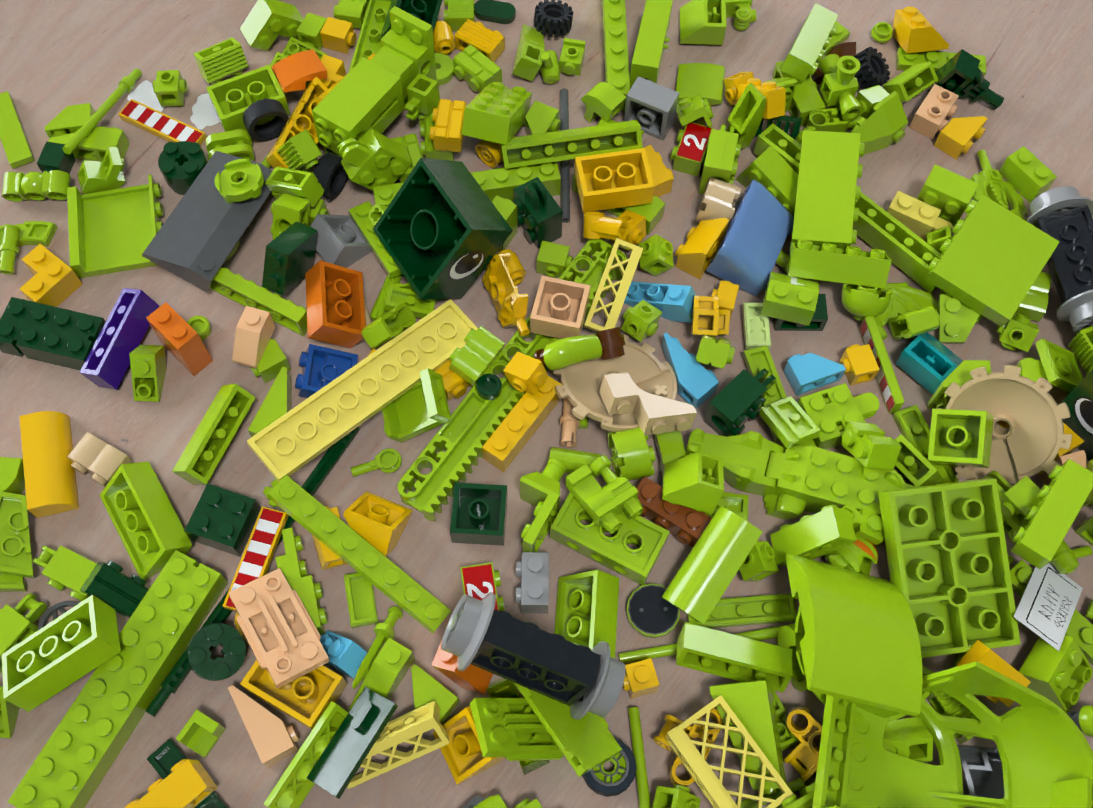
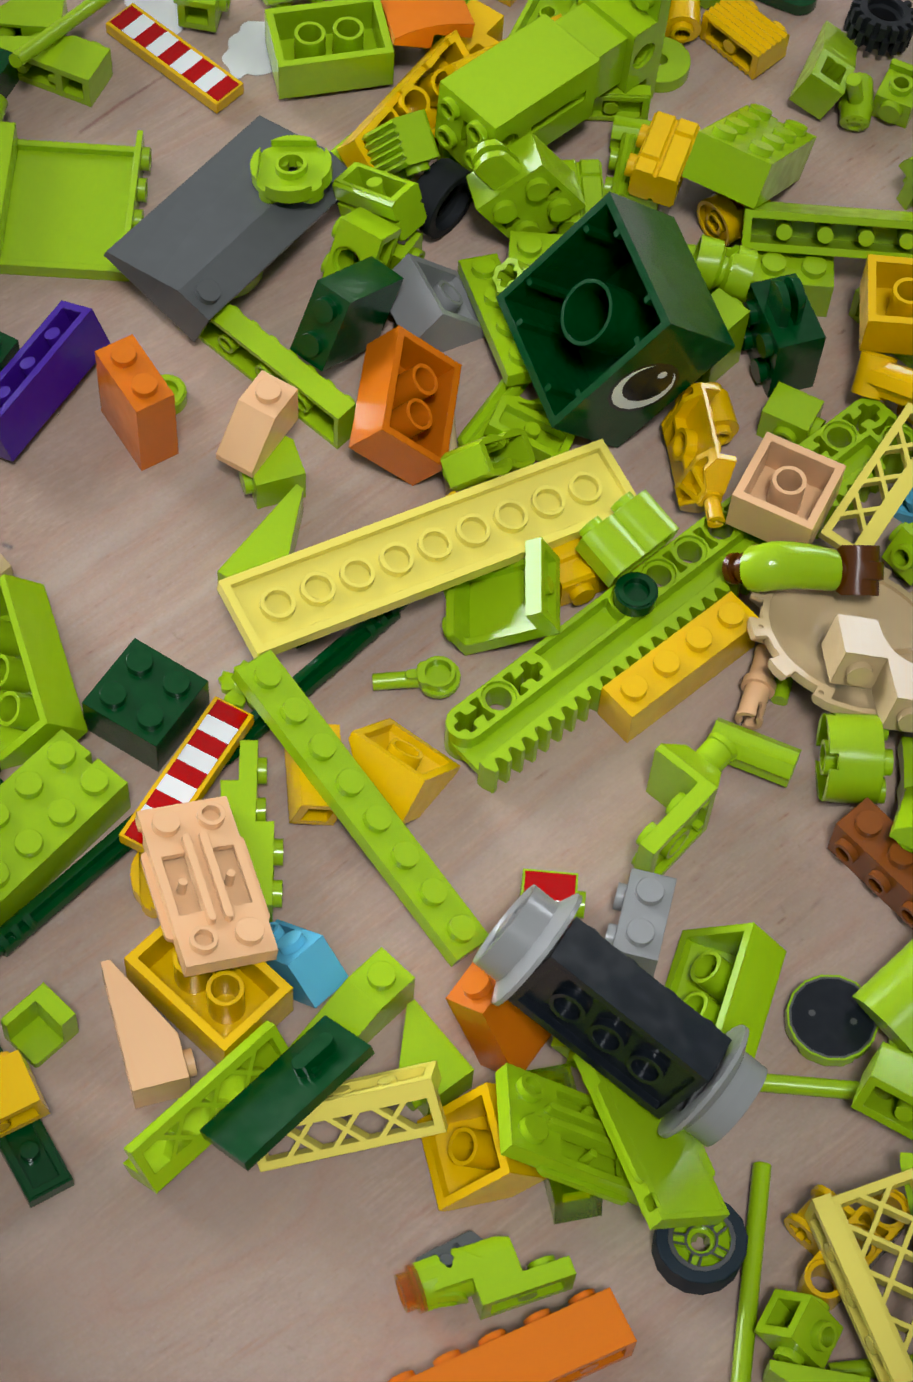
camera: 10 degrees right, 5 degrees down
(103, 175) = (59, 115): lime brick -> none
(148, 372) = (70, 445): lime slope -> none
(181, 164) = (196, 127): dark green brick -> none
(211, 636) = (83, 879): dark green brick -> none
(214, 434) = (159, 566): lime brick -> none
(232, 142) = (290, 108): lime brick -> none
(262, 109) = (344, 66): black tyre -> none
(321, 367) = (358, 499): blue plate -> none
(360, 601) = (343, 886): lime tile -> none
(383, 632) = (369, 941): lime sword -> none
(422, 96) = (627, 101): lime brick -> none
(476, 68) = (727, 77): lime brick -> none
(479, 514) = (572, 794): dark green brick -> none
(497, 182) = (725, 267): none -> lime wheel
(525, 373) = (703, 584): yellow brick -> none
(541, 119) = (823, 183): lime slope -> none
(564, 165) = (846, 265): dark grey piece -> none
(605, 502) = (797, 818): lime hips -> none
(611, 551) = (785, 878): lime brick -> none
(640, 678) = (784, 1118): yellow brick -> none

